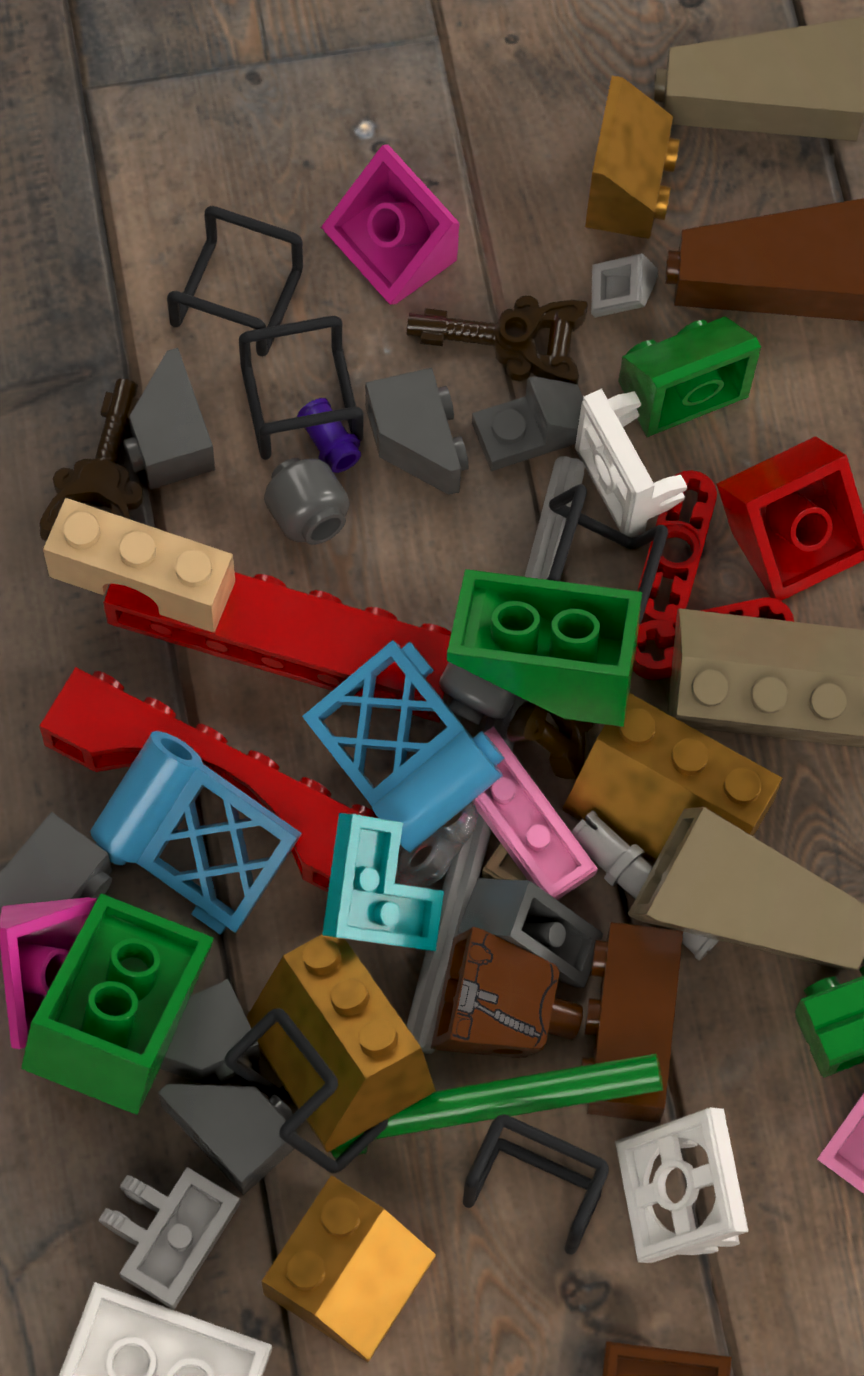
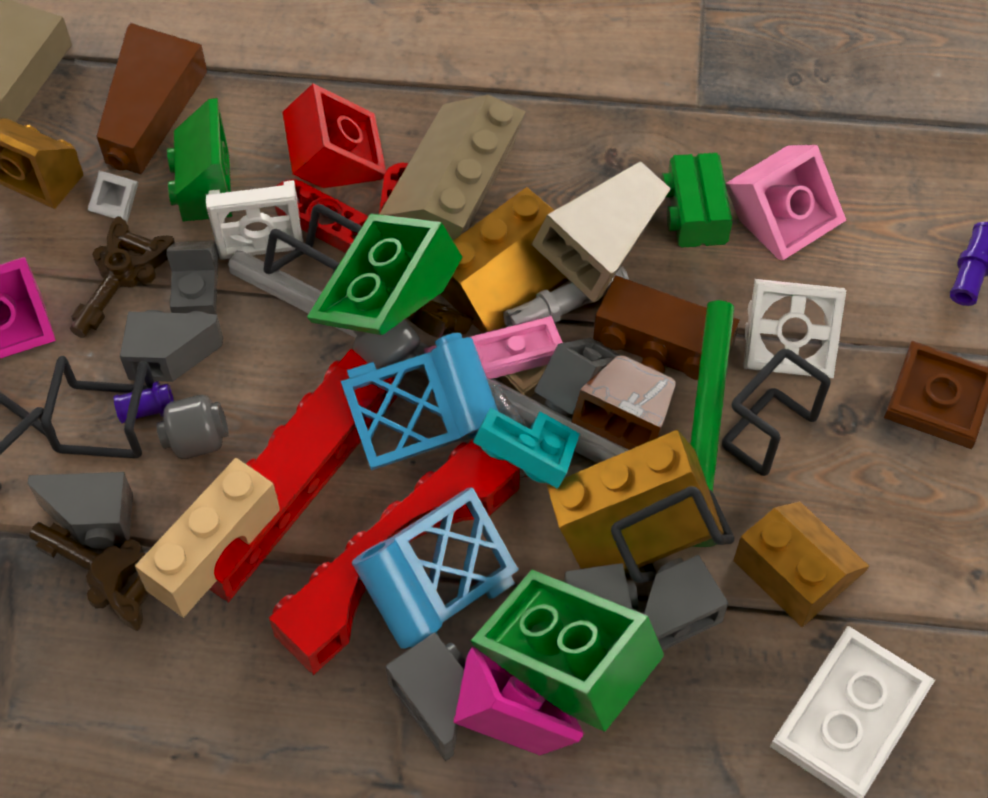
camera: 70 degrees left, 10 degrees down
(178, 1237) = (751, 669): light grey hinge -> none

